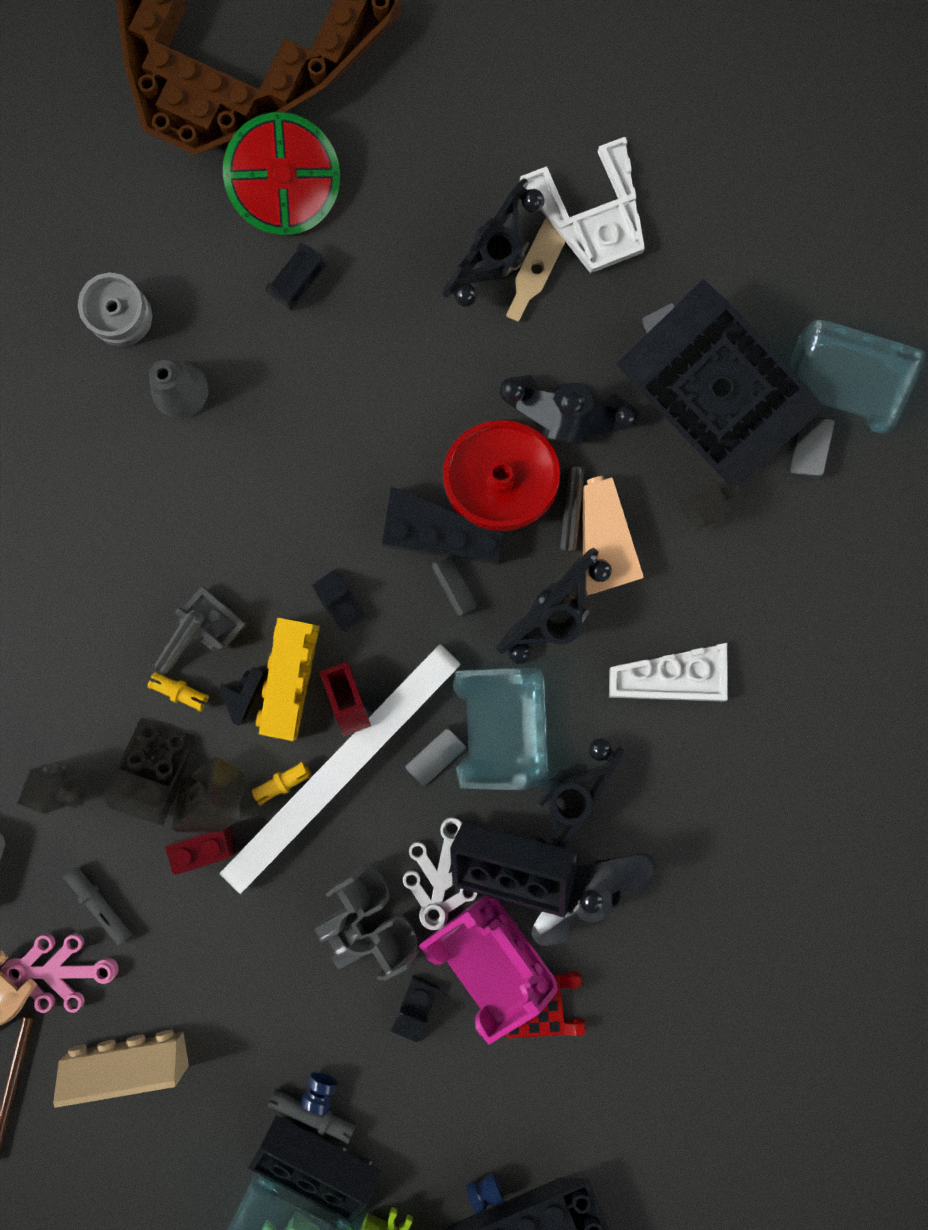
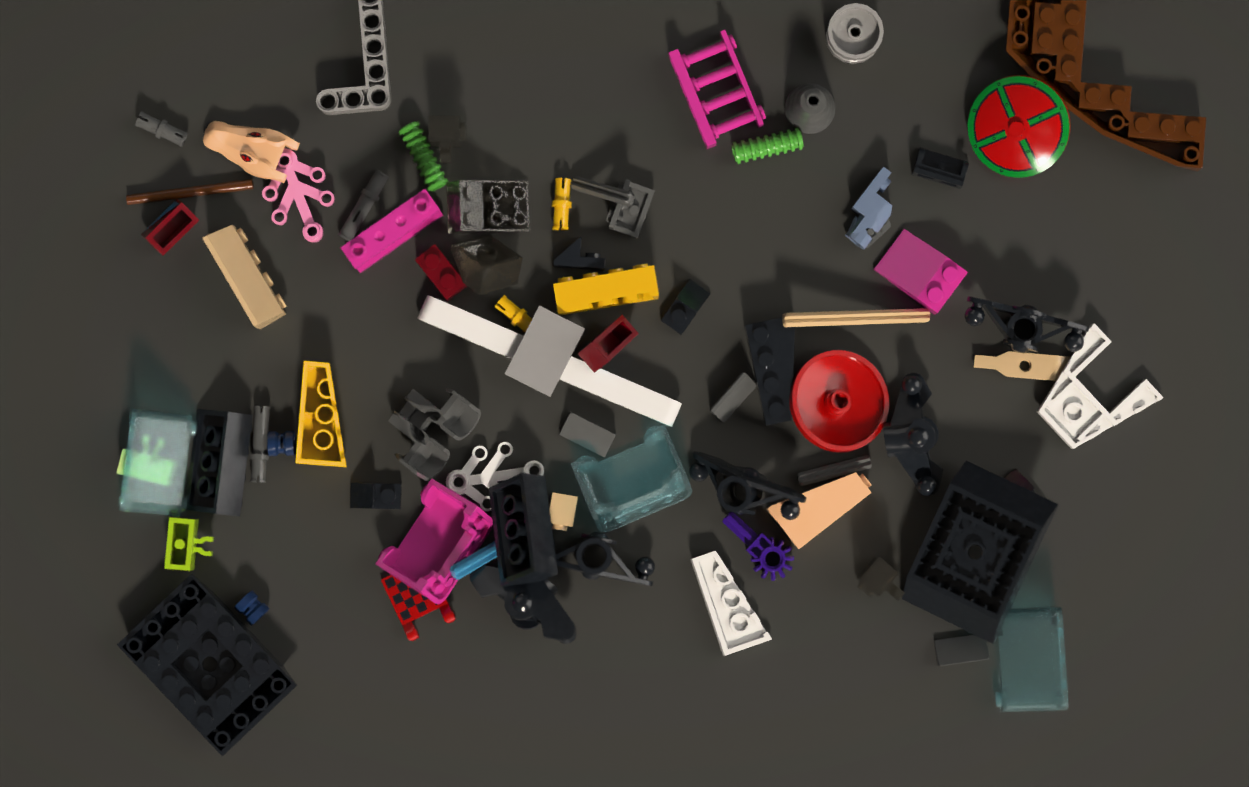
camera: 75 degrees right, 0 degrees up
(36, 1130) = (170, 227): none -> dark red brick
(68, 821) = (423, 156): none -> bright green piece
(105, 505) = (701, 108): none -> dark pink fence
(132, 889) = (392, 231): none -> dark pink fence
(200, 448) = (767, 145): none -> bright green piece
(307, 1044) = (318, 421): none -> yellow wedge
(314, 364) = (872, 212): none -> sand blue plate
(327, 771) = (544, 351): none -> light grey tile
(397, 337) = (920, 271): none -> dark pink slope
(418, 424) = (856, 317): none -> tan axle
(506, 815) = (562, 511): none -> tan brick
(526, 935) = (474, 561): none -> dark azure axle
(624, 618) = (759, 546): none -> dark purple gear

